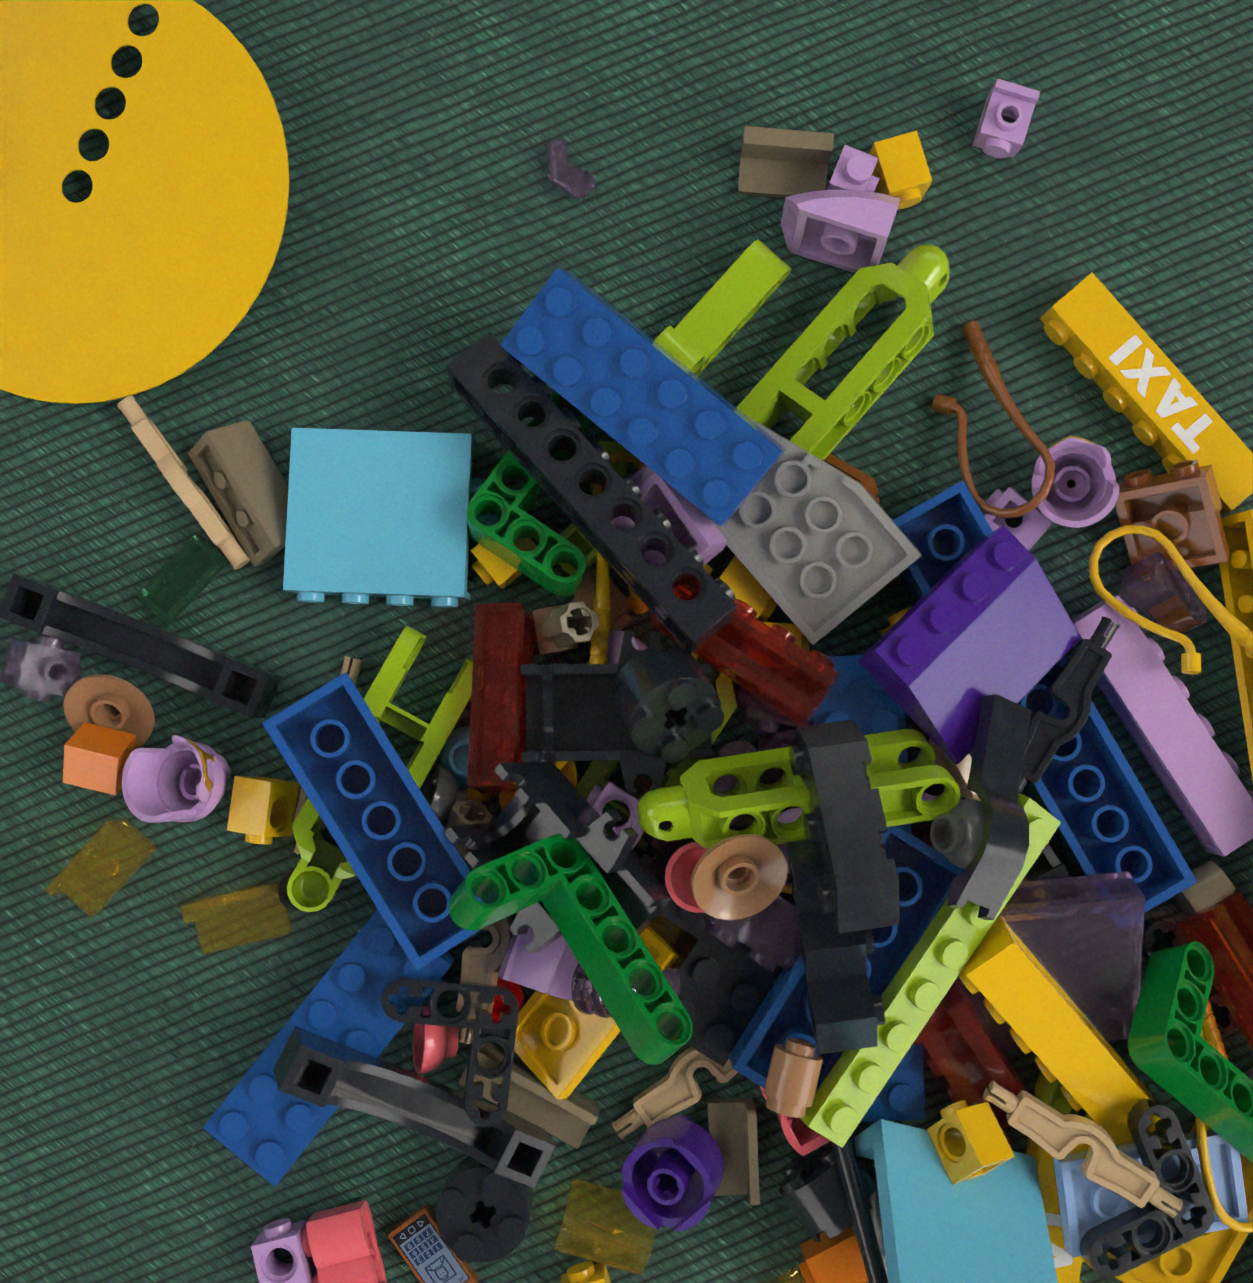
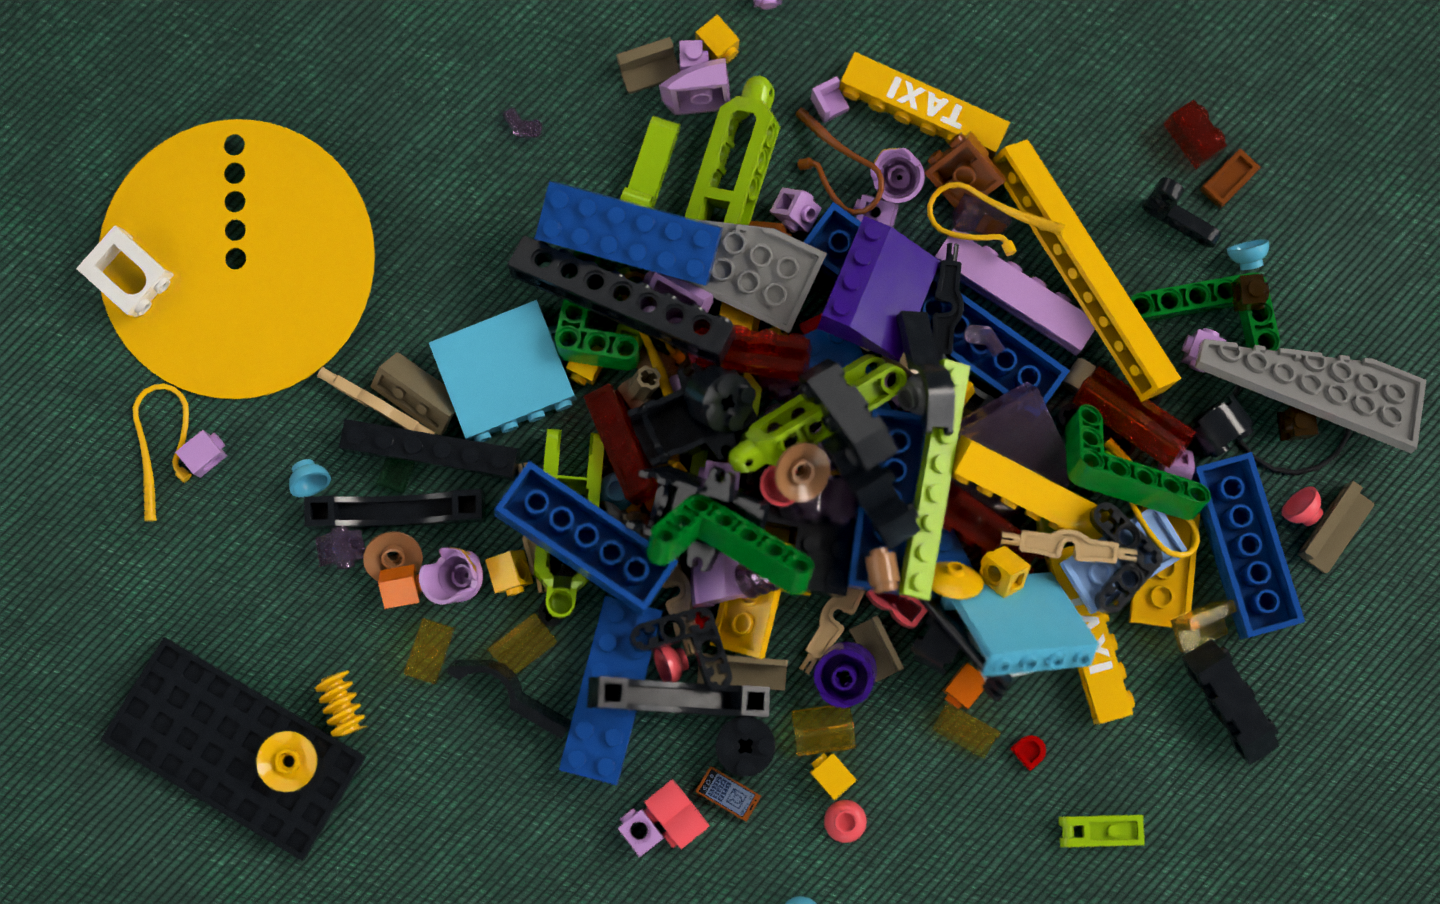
camera: 25 degrees left, 5 degrees down
(40, 546) = (308, 478): none -> medium azure piece
(198, 998) = (519, 701): none -> black piece
(227, 582) = (429, 448): none -> black arch
(849, 644) = (809, 325): none -> red tile
(896, 1129) = (956, 580): none -> yellow dish
(902, 466) = (801, 210): none -> lavender brick
(1020, 326) = (829, 100): none -> lavender panel
(1097, 778) = (984, 336): none -> clear purple arm

